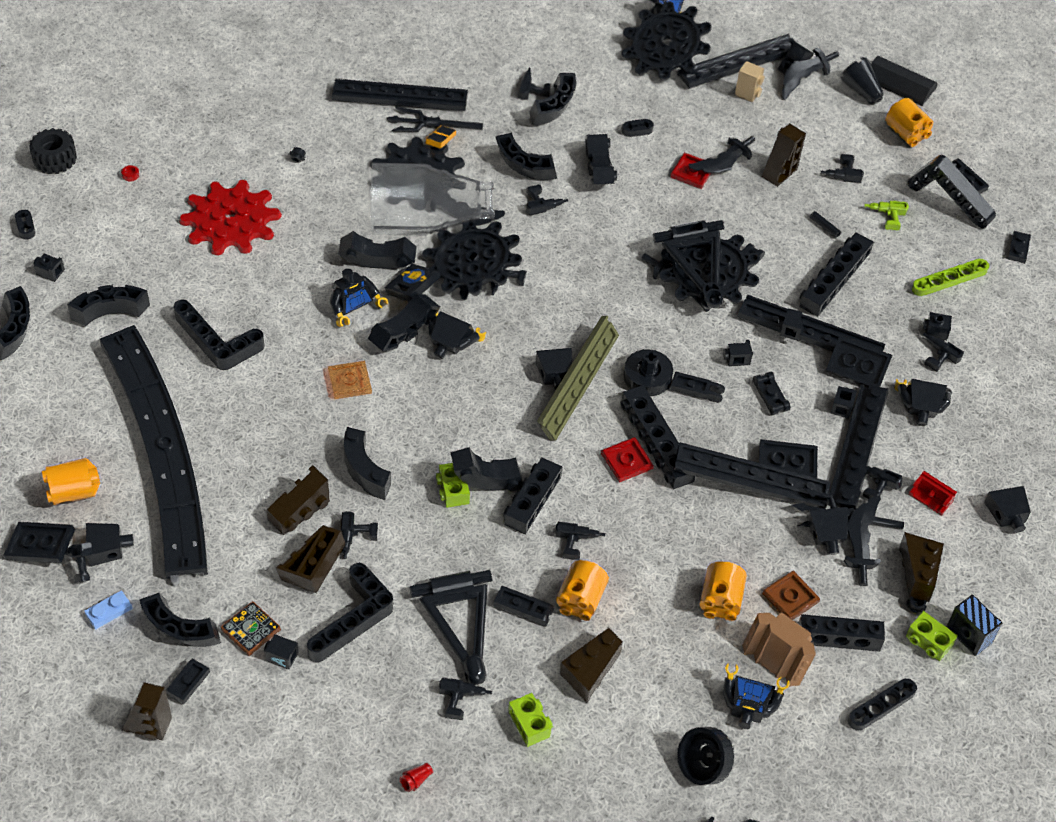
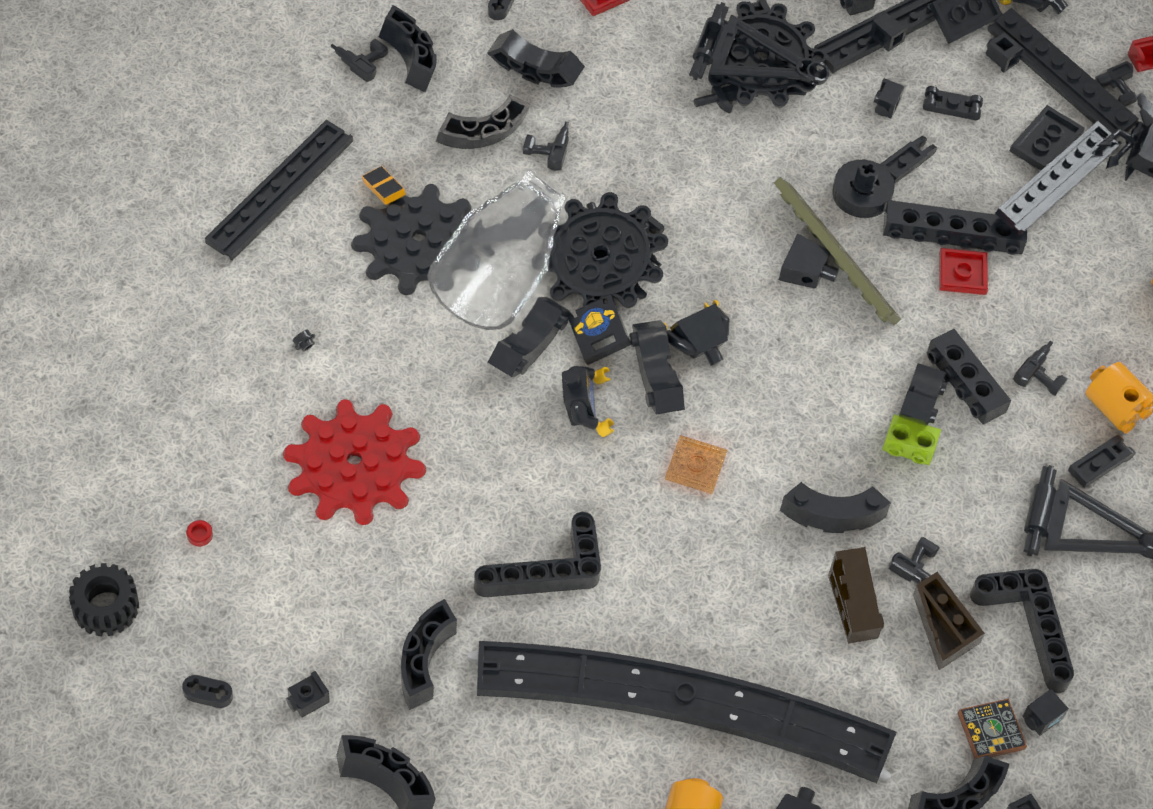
camera: 60 degrees left, 5 degrees up
(425, 121) = (343, 185): black piece -> none

